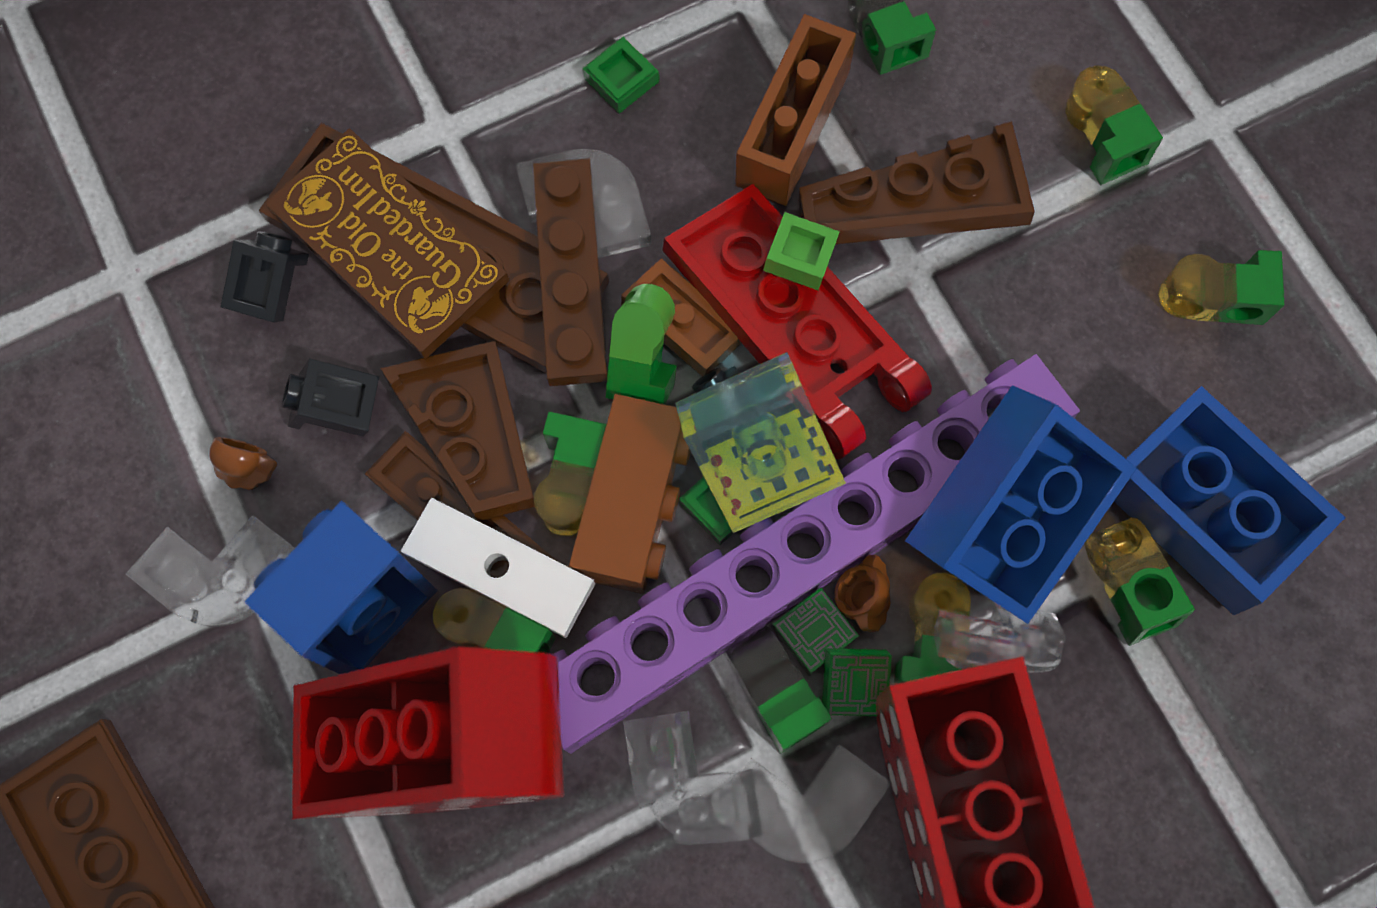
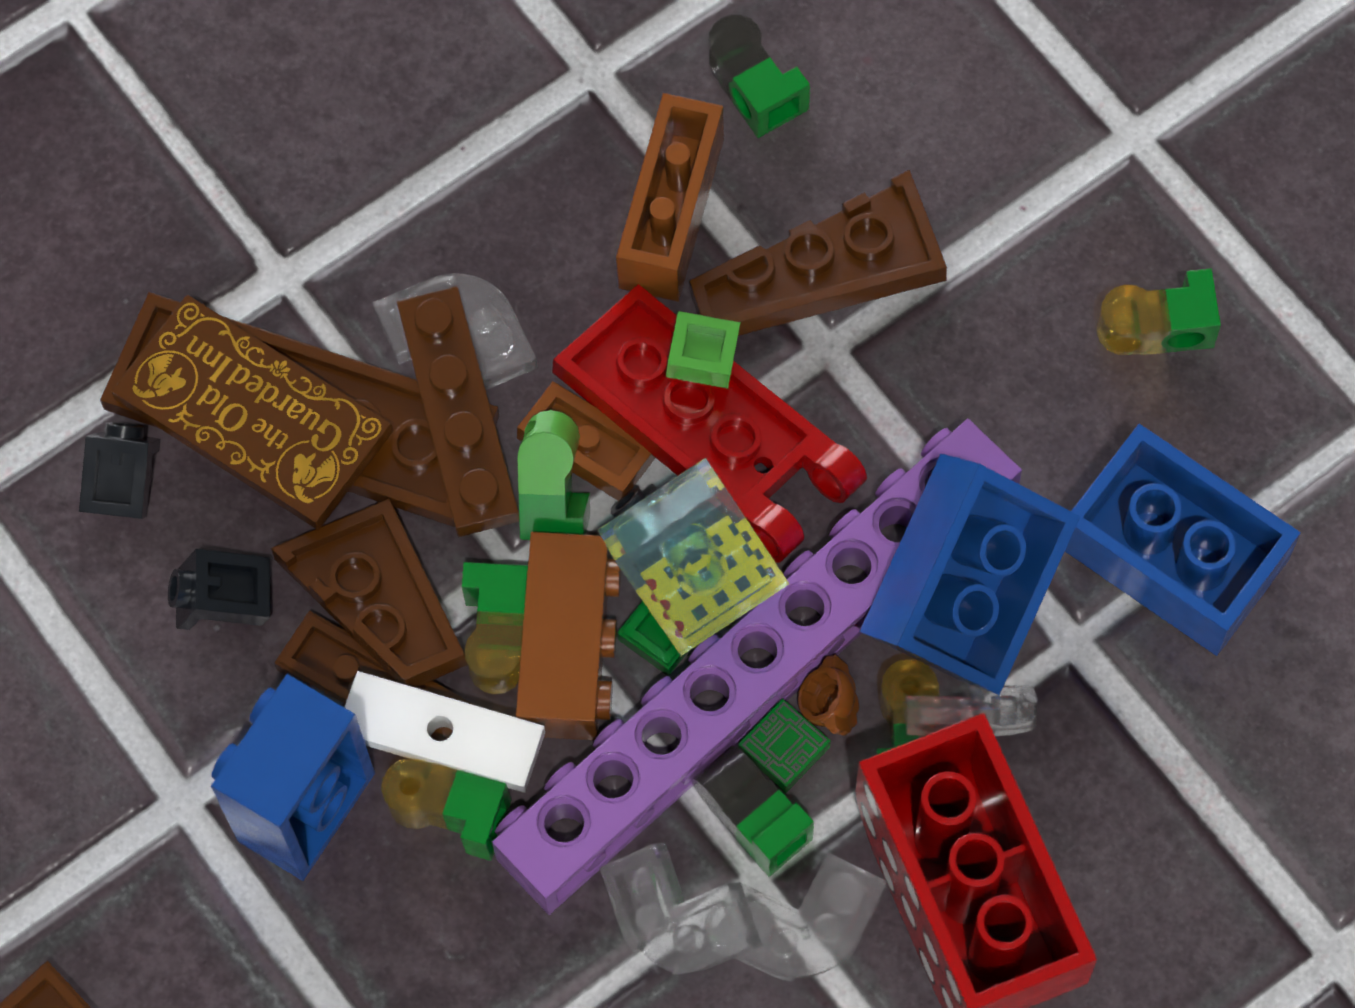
camera: 10 degrees left, 5 degrees down
(206, 589) = (140, 810): clear plate -> none
(240, 463) = (135, 675): dark orange piece -> none
(428, 735) = (409, 899): red brick -> none
(621, 74) = (469, 184): green tile -> none
(854, 680) = (830, 786): green tile -> none
(1112, 122) = (1020, 153): leg -> none
(1137, 580) = (1110, 637): leg -> none

